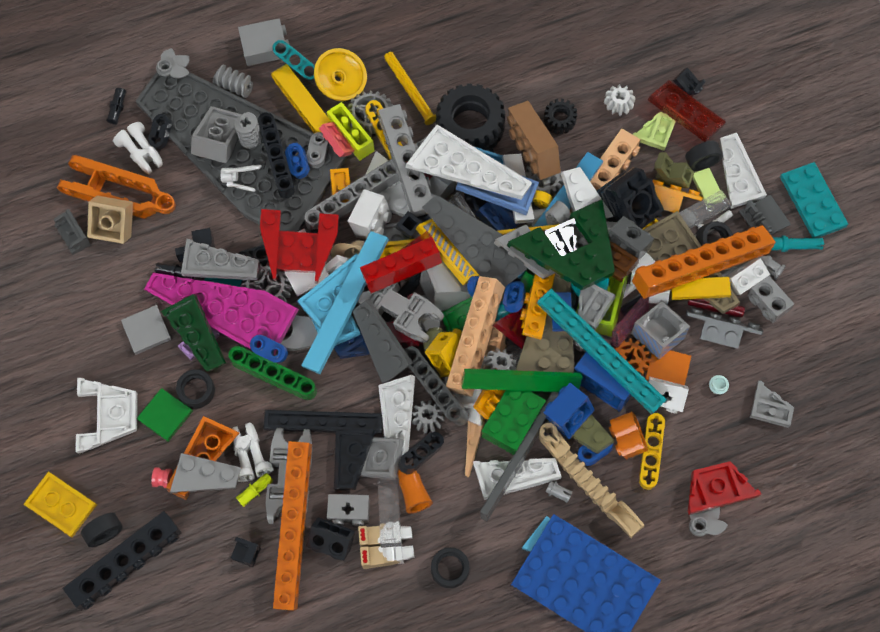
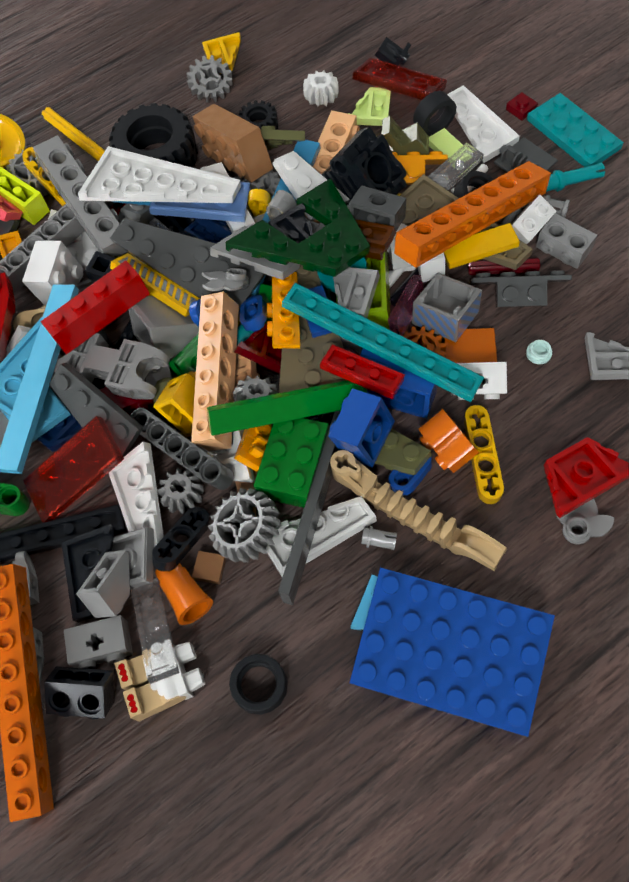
camera: 10 degrees left, 5 degrees down
(355, 380) = (73, 469): none -> clear red tile
(364, 472) = (107, 585): none -> light grey slope
(435, 477) = (209, 567): none -> medium nougat tile
(472, 464) = (238, 518): none -> light grey gear
(502, 268) = (230, 280): none -> light grey plate
(522, 55) = (210, 81): none -> light grey gear
(546, 38) = (223, 47): none -> yellow wing
(571, 148) = (274, 138): none -> olive wing
(580, 369) = (362, 371): none -> red tile
(779, 164) = (521, 106): none -> dark red plate

